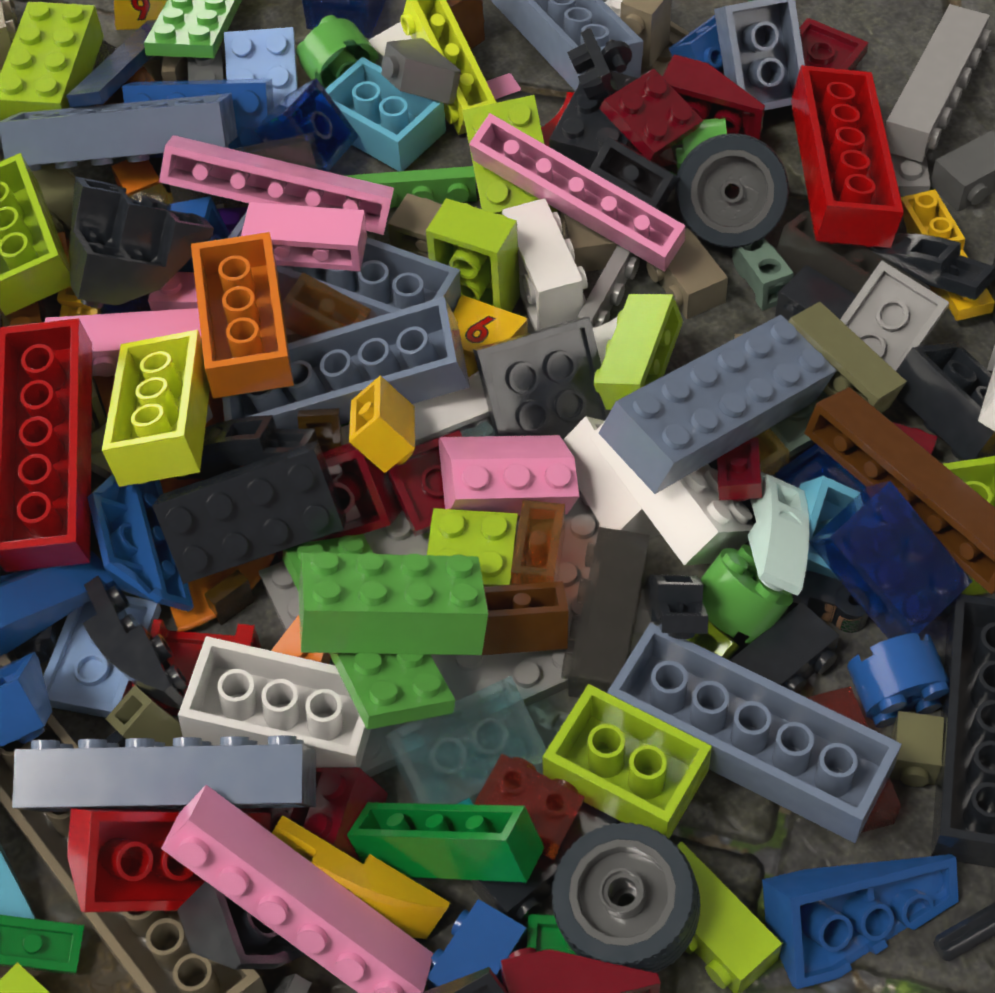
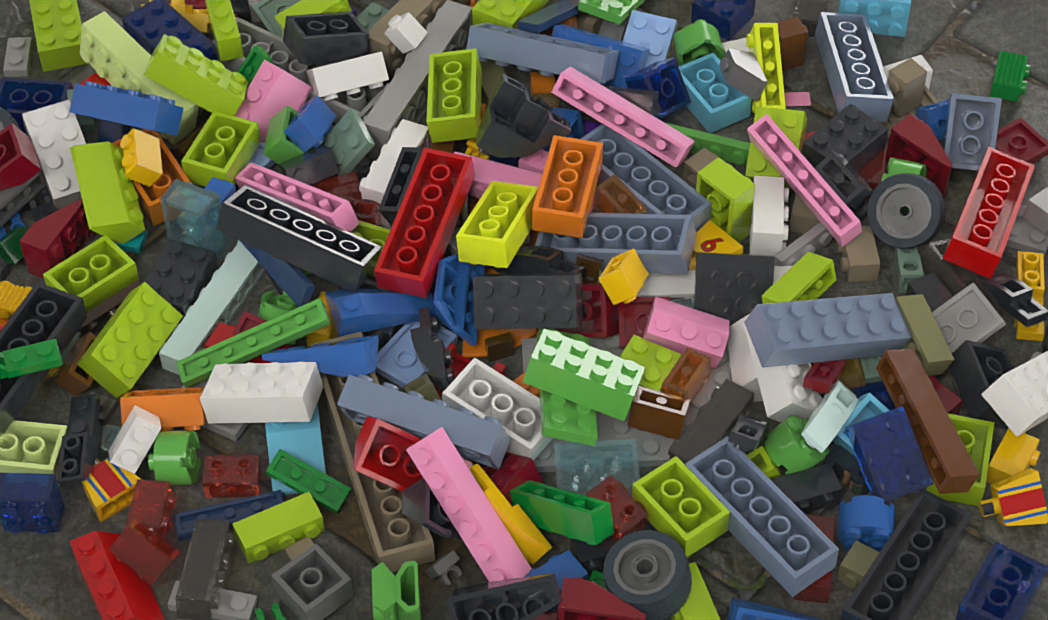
camera: 20 degrees right, 5 degrees down
(310, 234) = (629, 153): bright pink brick -> none
(613, 57) = (855, 103): black hips -> none
(651, 114) = (873, 146): dark red plate -> none

